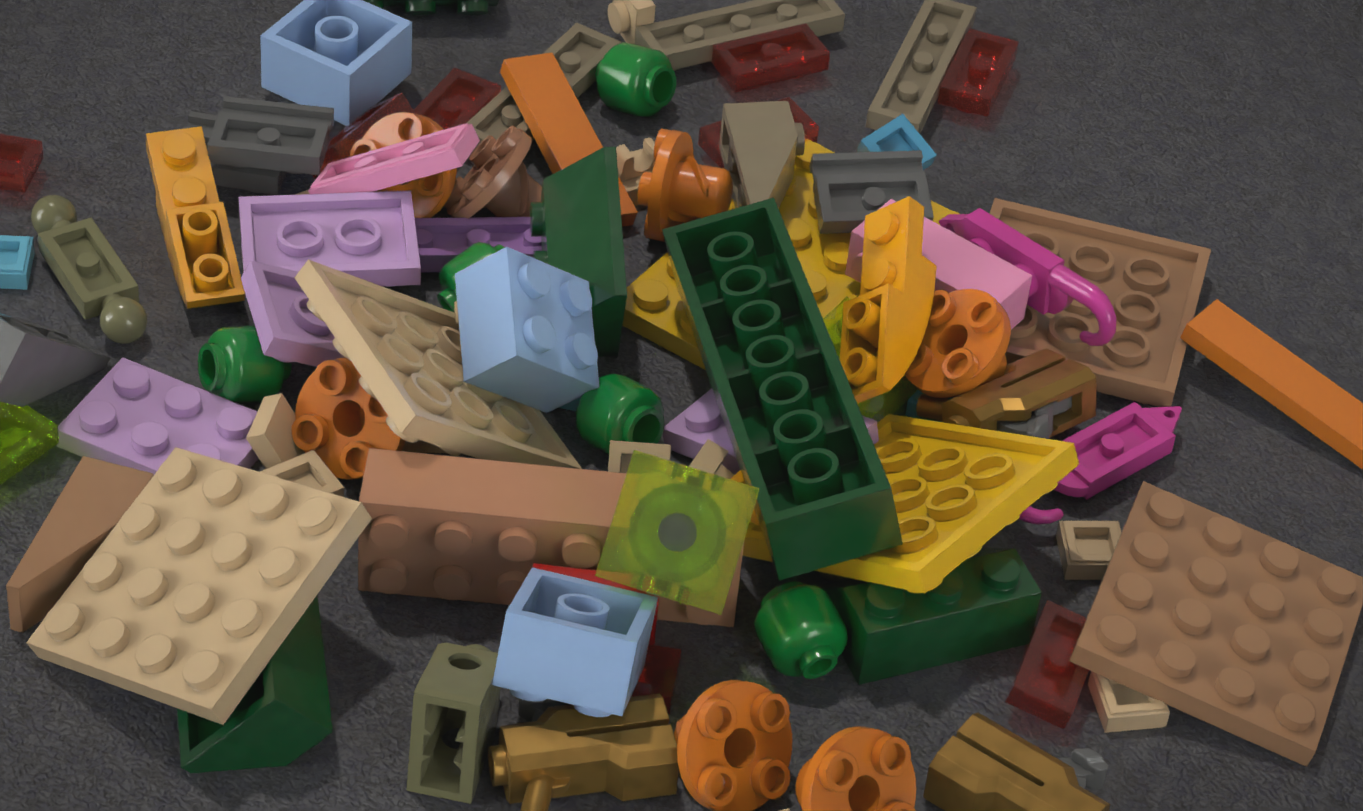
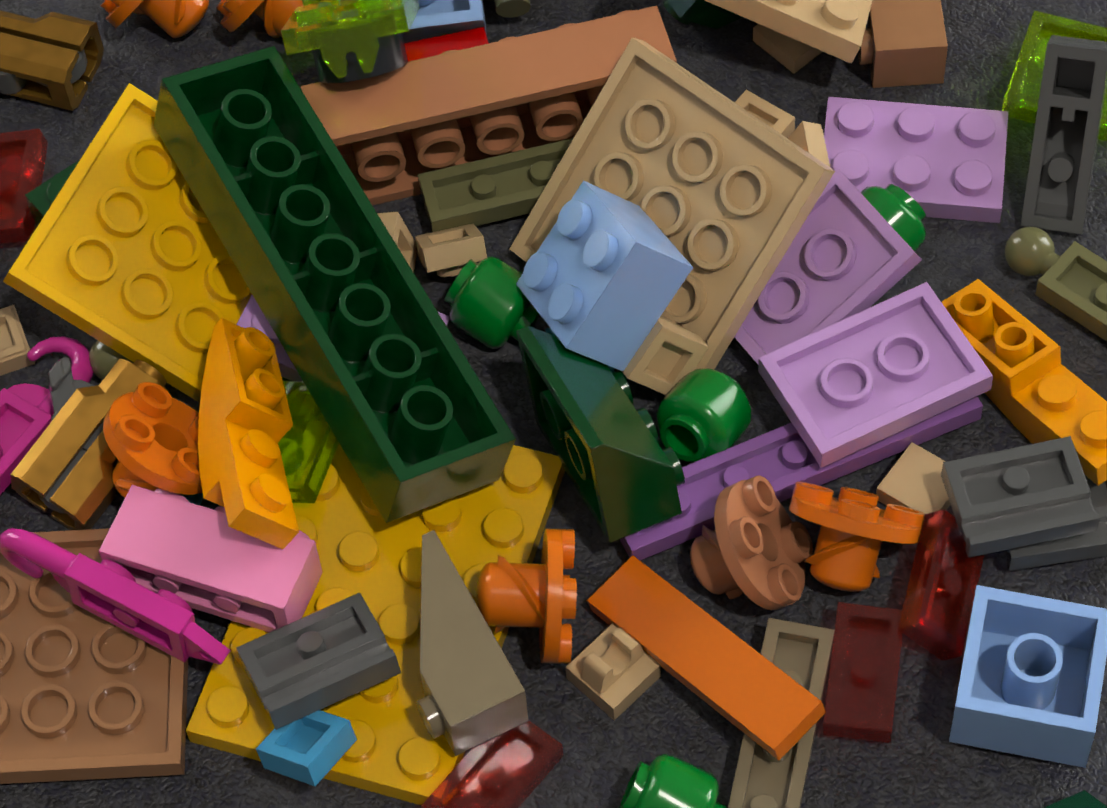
camera: 170 degrees right, 15 degrees up
(398, 162) = (850, 461): bright pink tile -> none

